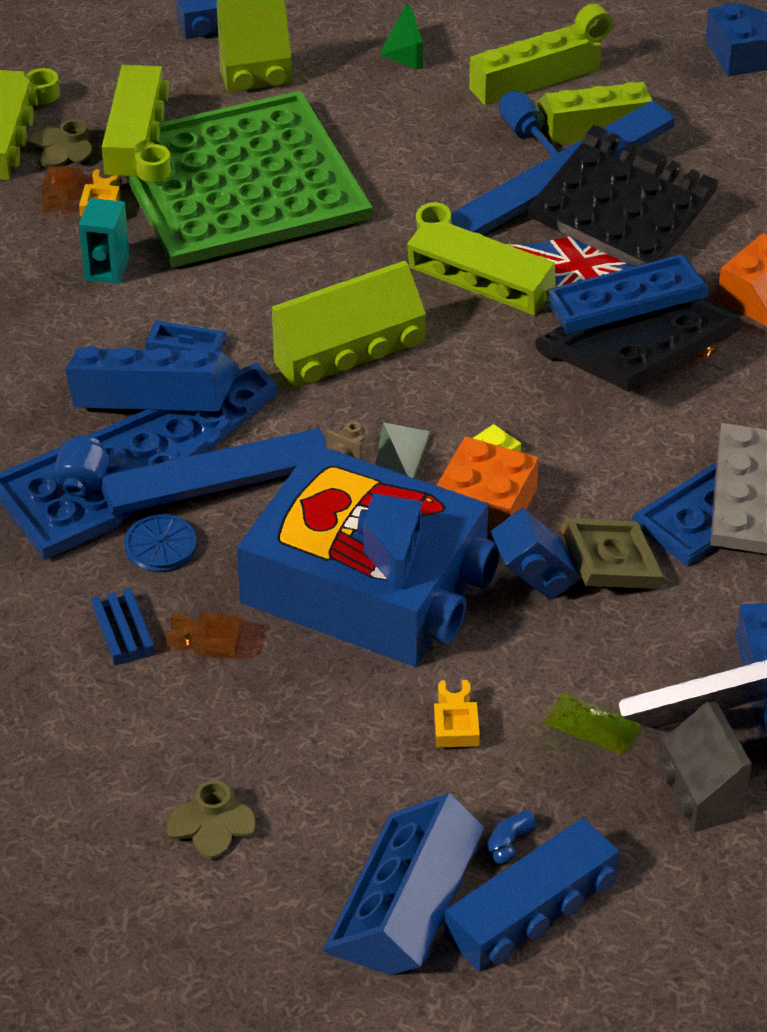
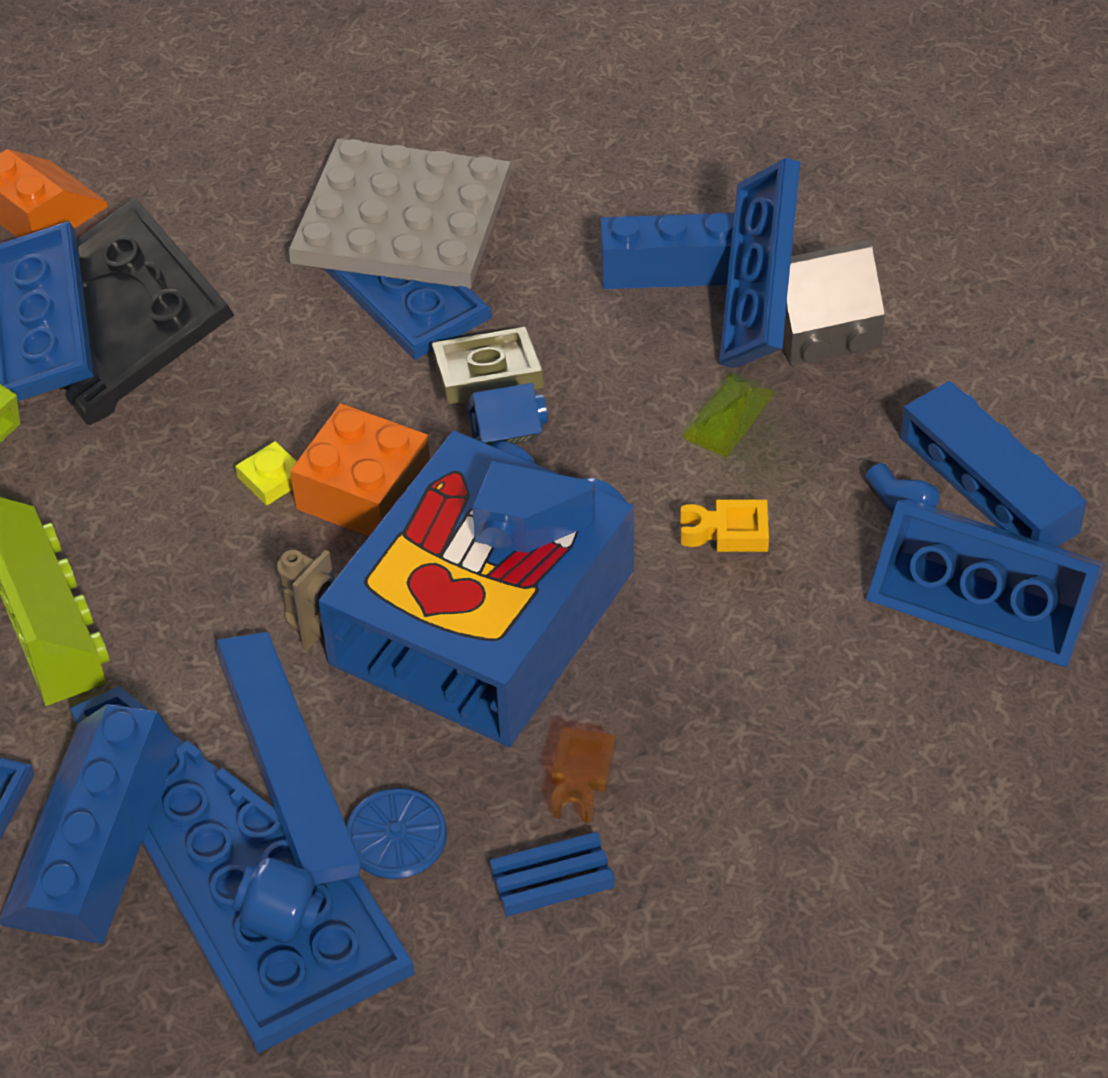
camera: 85 degrees left, 5 degrees up
(211, 825) = (892, 771): olive plate -> none
(401, 448) = (249, 566): sand green slope -> none

